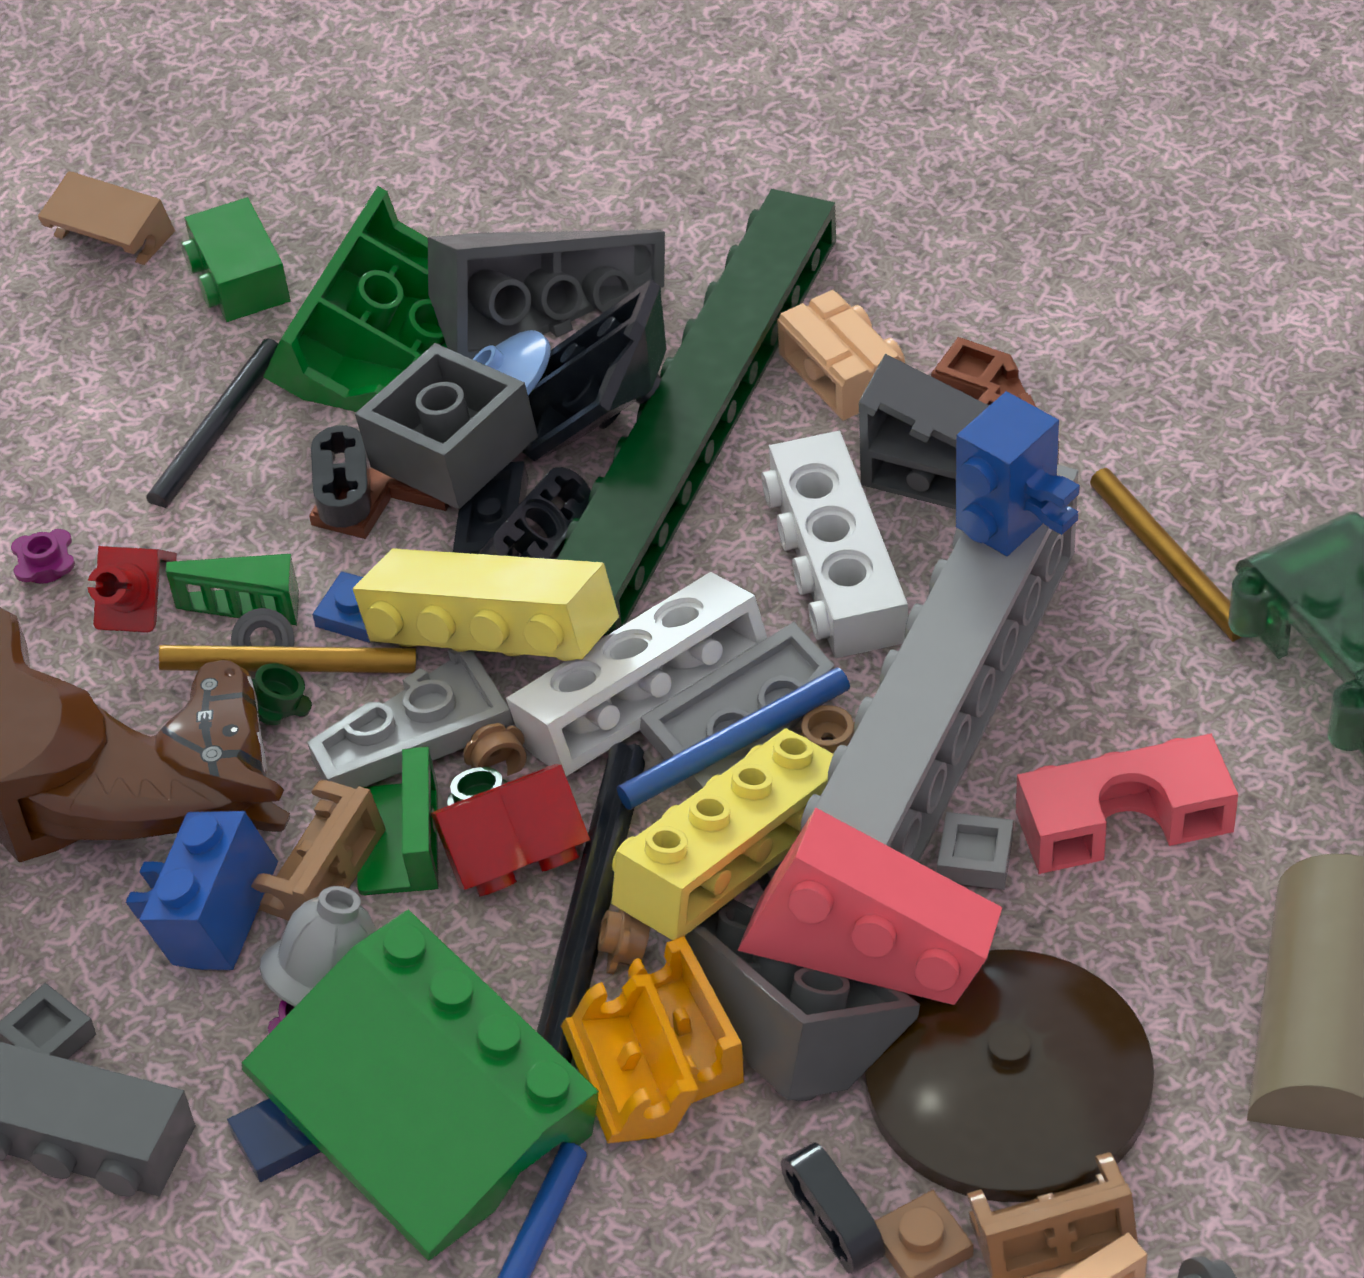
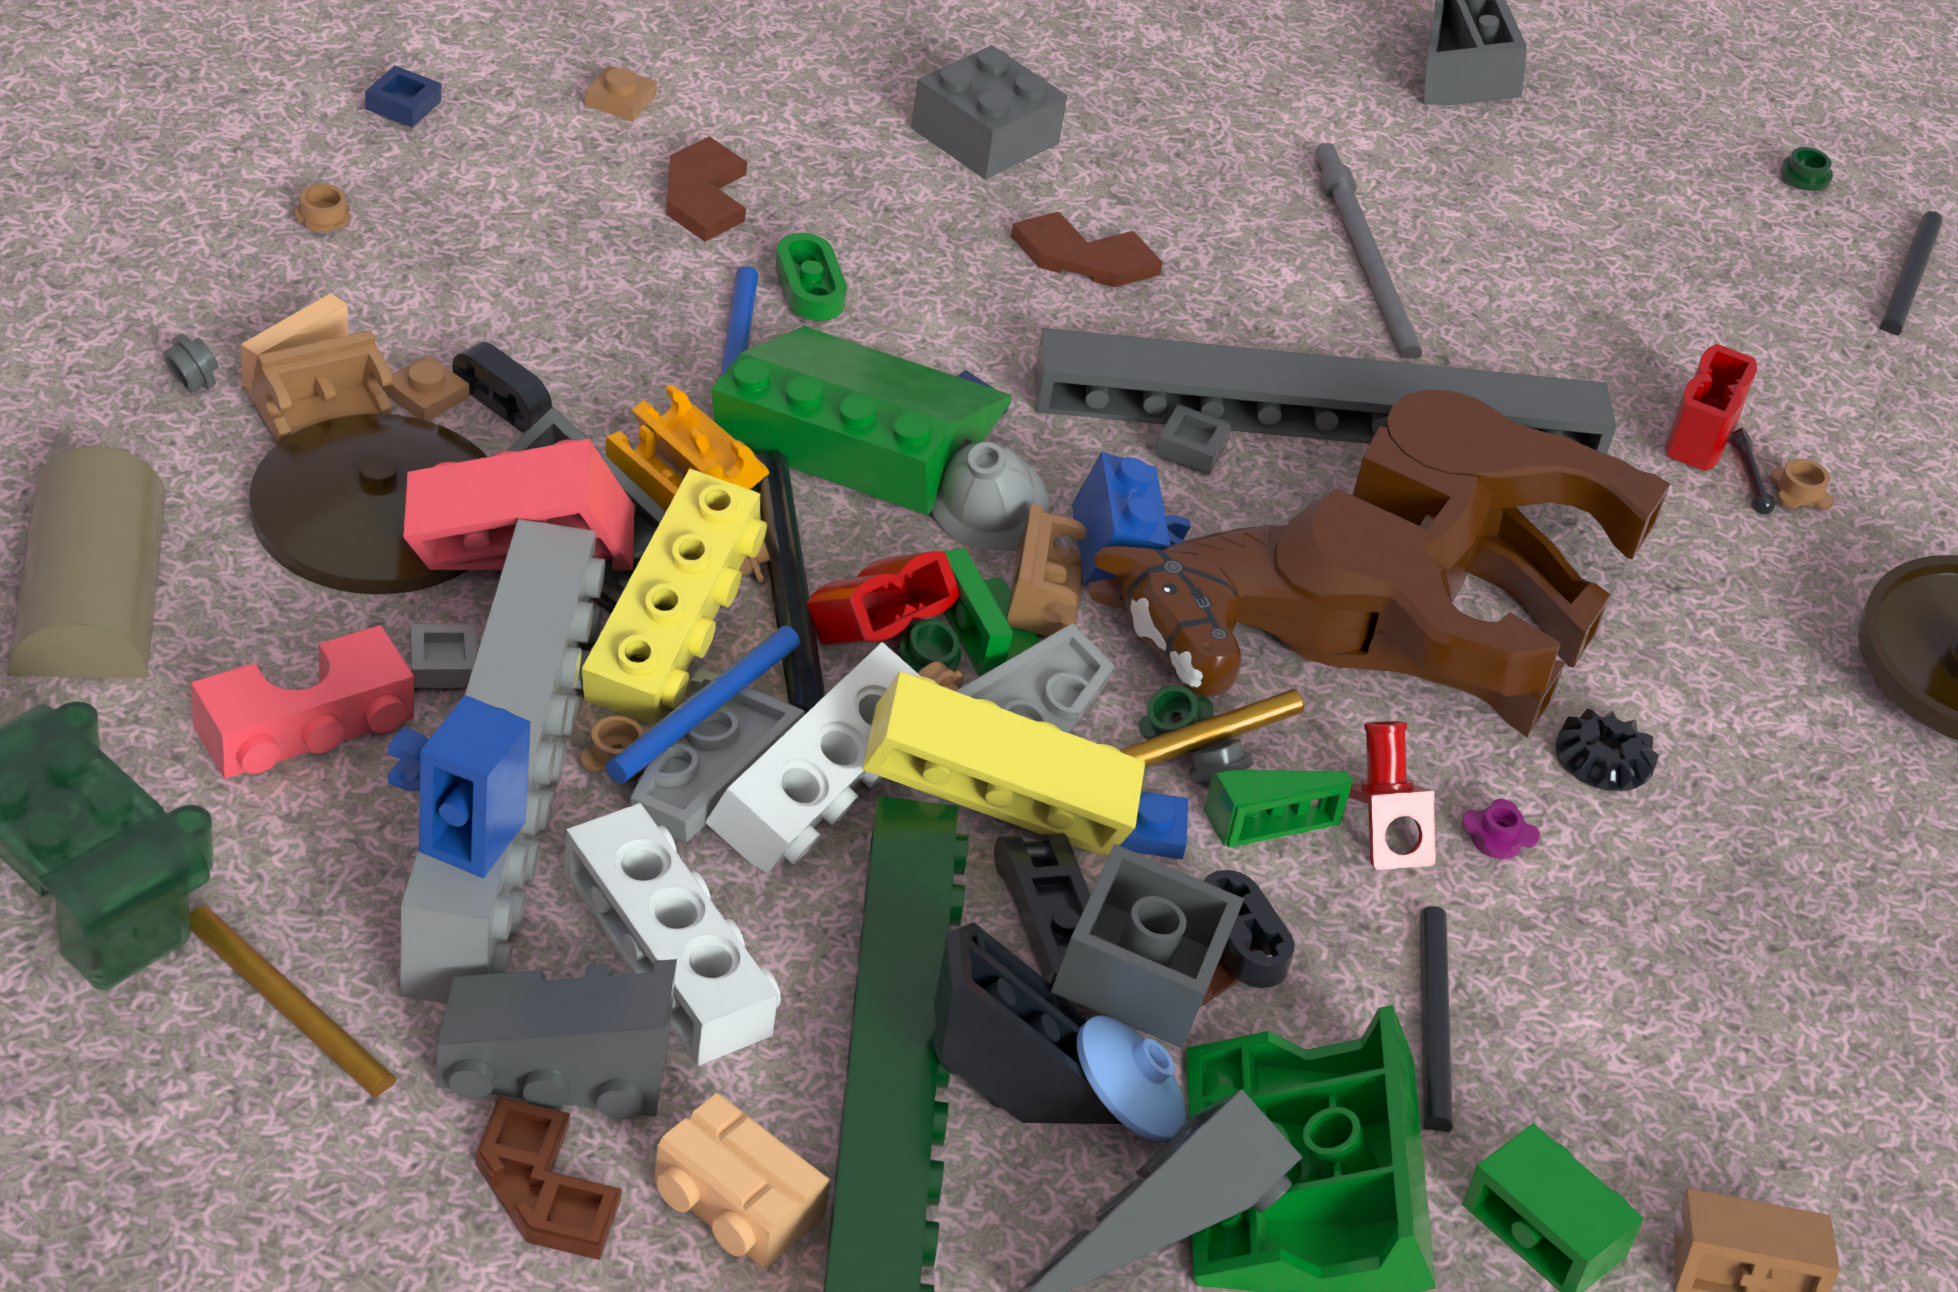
camera: 150 degrees right, 5 degrees down
(540, 509) = (989, 862): black beam -> none

